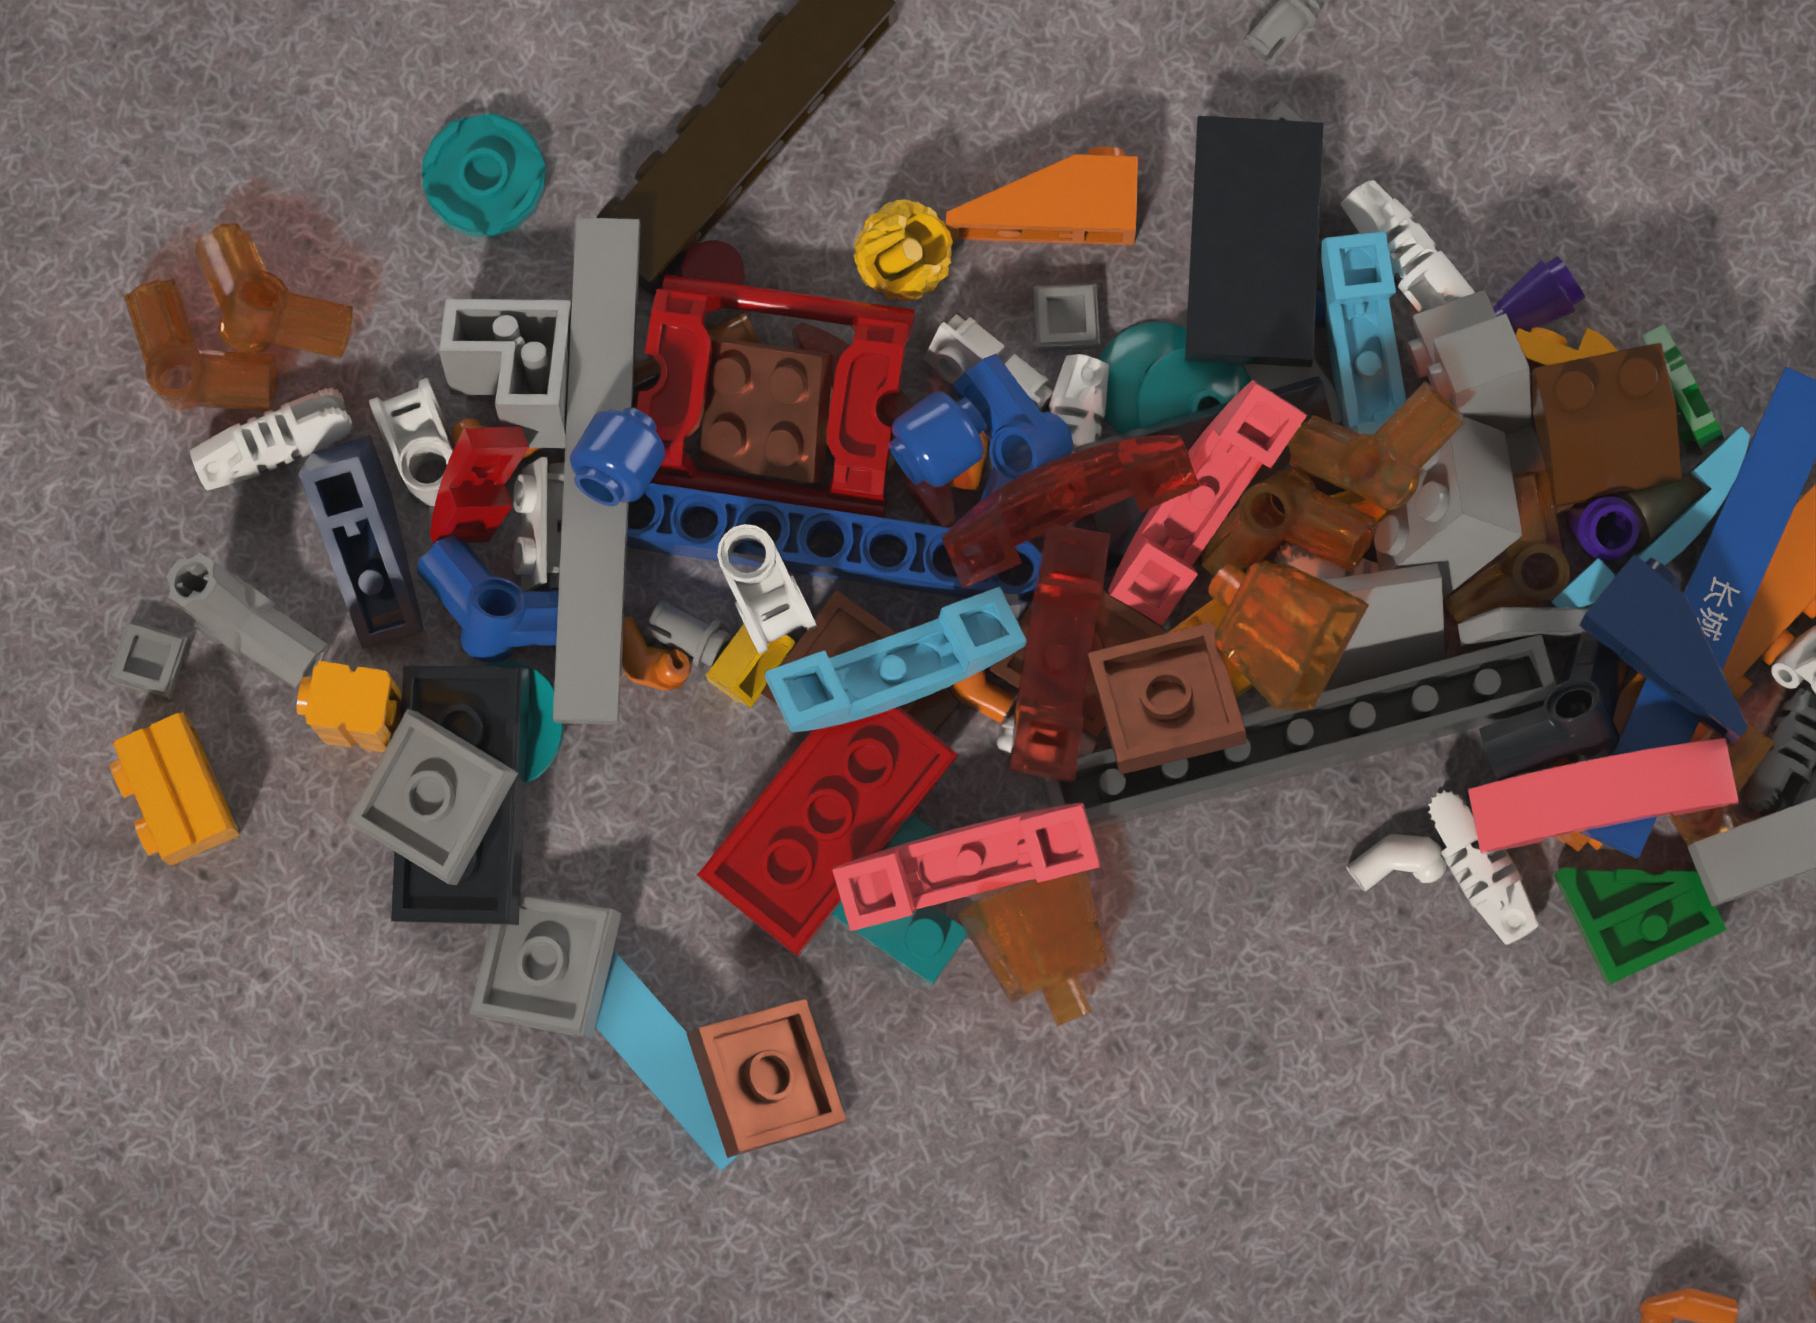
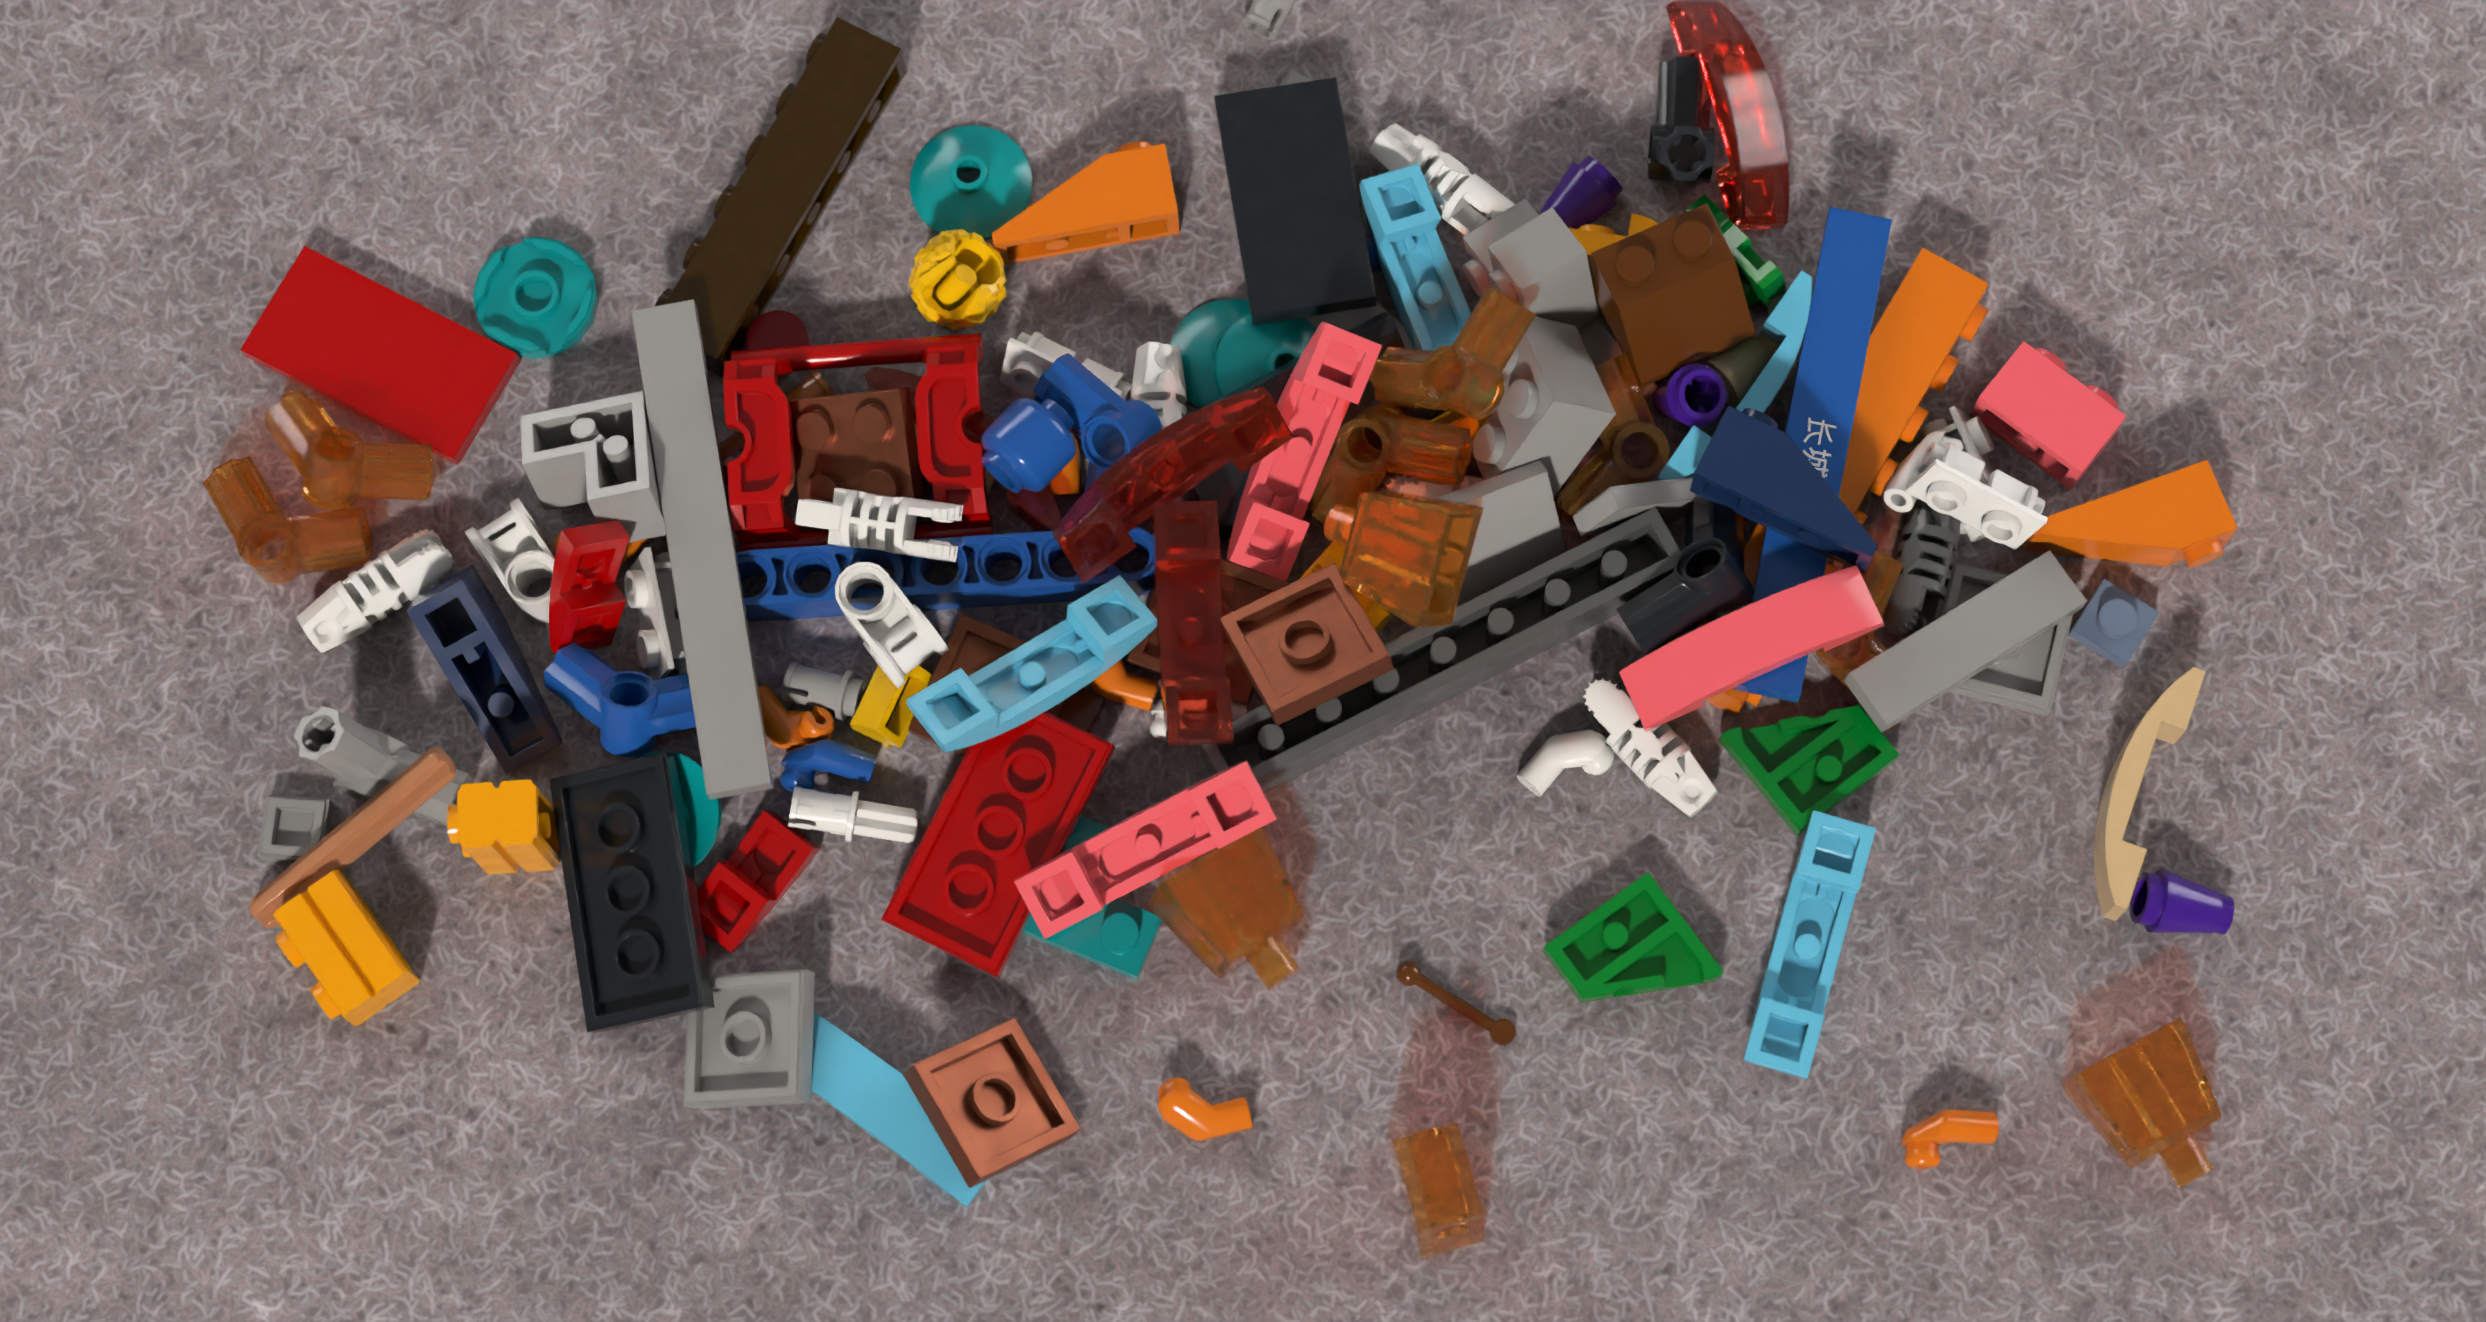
camera: 15 degrees left, 5 degrees down
(207, 680) = (357, 832): none -> nougat axle
(321, 201) = (381, 355): none -> red tile
(432, 797) = (602, 899): light grey tile -> none
(580, 805) = (753, 879): none -> red slope
(617, 456) = (717, 525): blue head -> none
(676, 701) = (823, 757): none -> blue arm
(689, 765) = (851, 816): none -> white axle
(775, 484) = (879, 522): none -> white hinge
(943, 177) = (977, 206): none -> teal dish
(961, 1133) = (1198, 1117): none -> orange arm
(1066, 317) = (1129, 313): light grey tile -> none
(1177, 1254) = (1437, 1188): none -> clear orange torso
(1274, 1114) = (1501, 1031): none -> reddish brown hinge
(1419, 1061) = (1631, 947): none -> green wing
(1593, 1097) = (1808, 944): none -> medium azure slope
(1657, 255) = (1681, 137): none -> black piece
(1727, 241) = (1746, 111): none -> clear red slope

